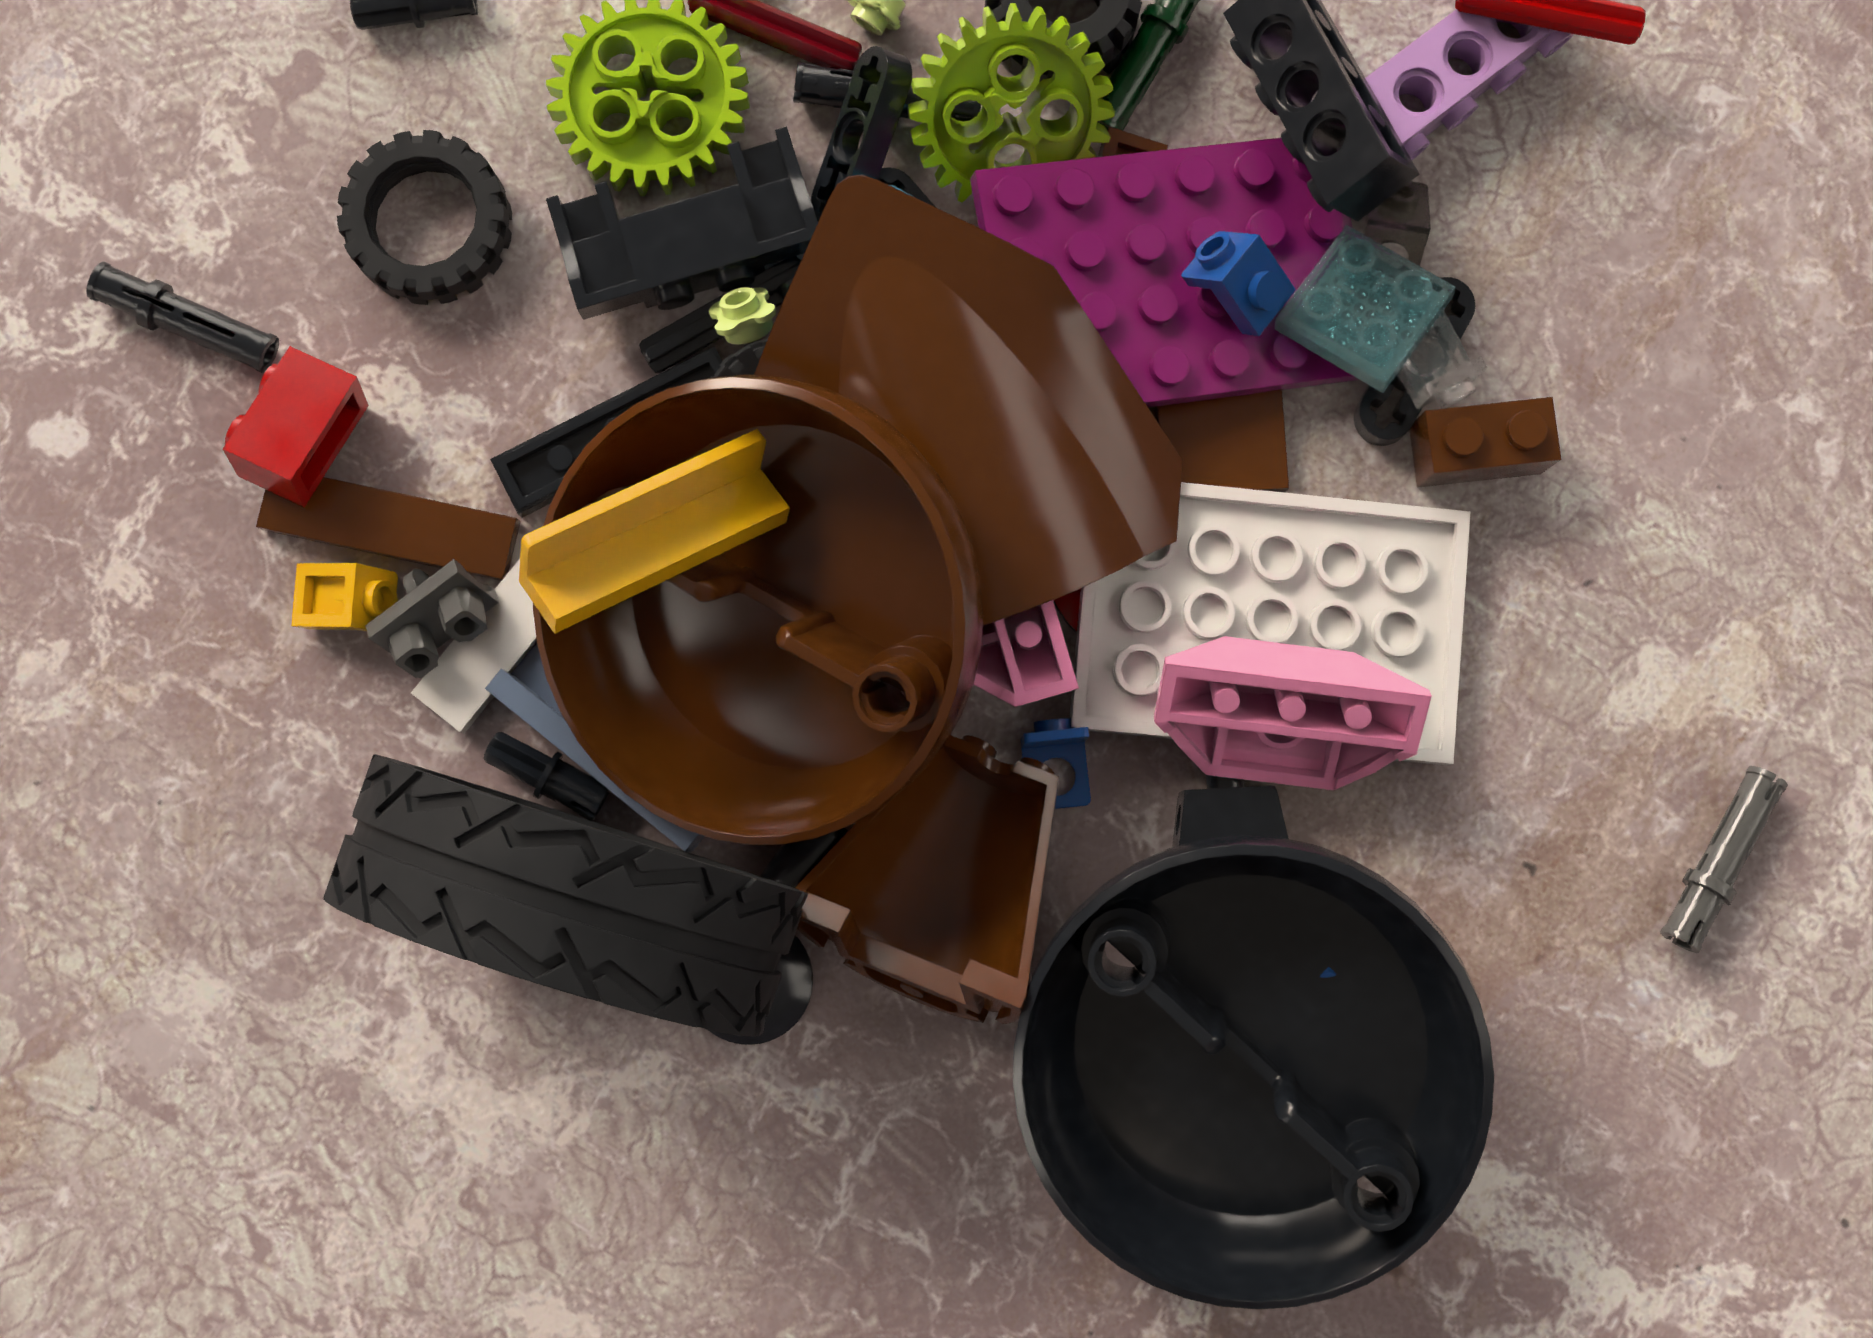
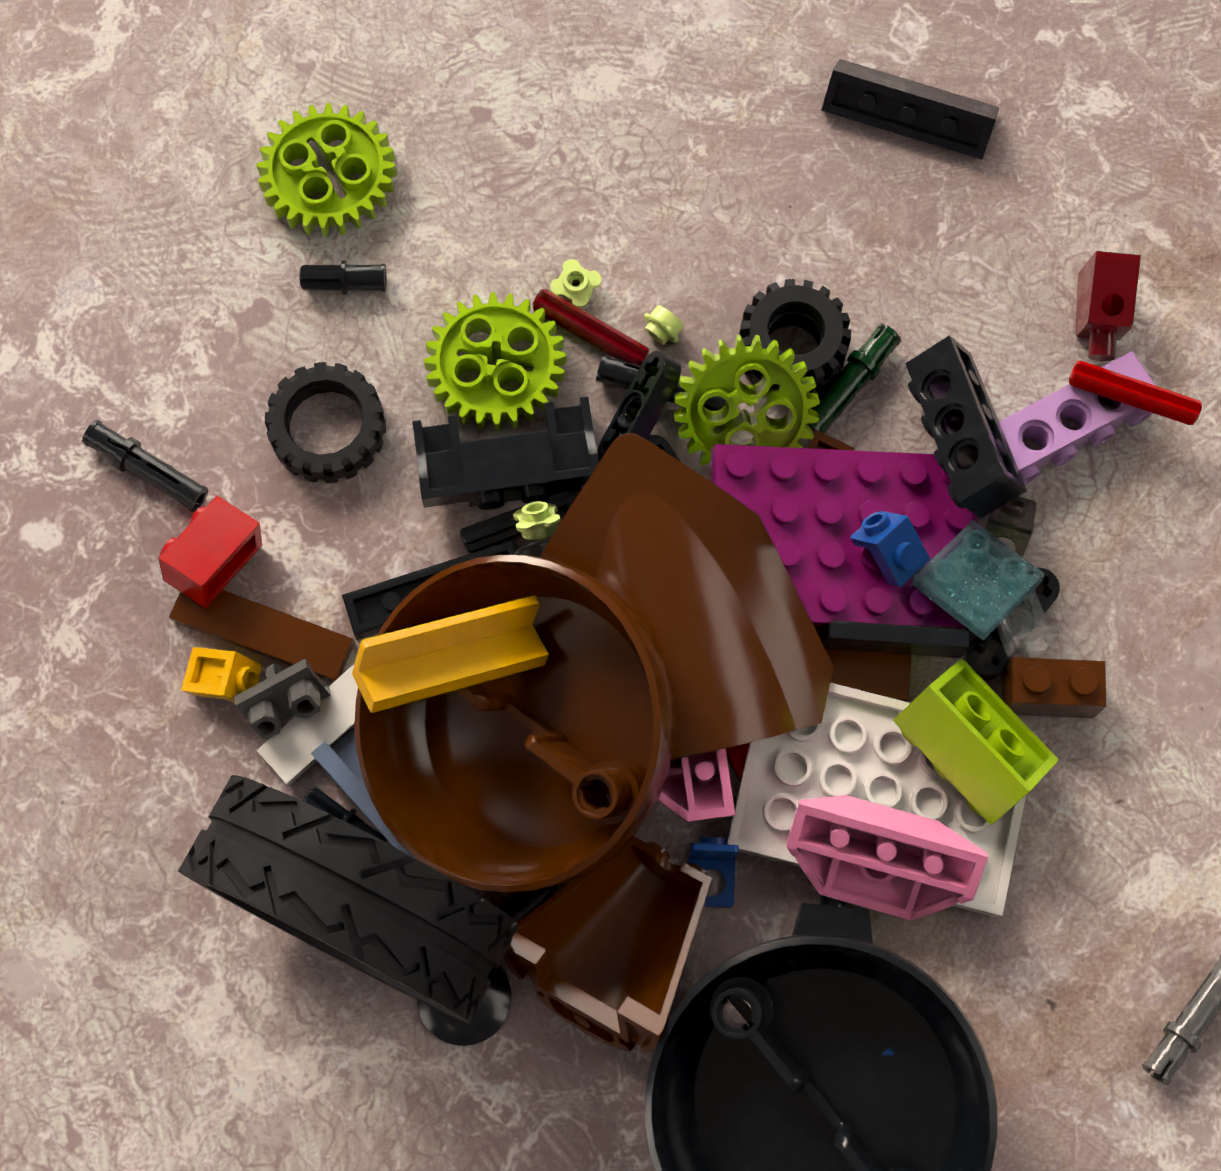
camera: 10 degrees right, 10 degrees down
(1263, 408) = (896, 639): none -> black tile
(1391, 535) = (975, 741): none -> lime slope

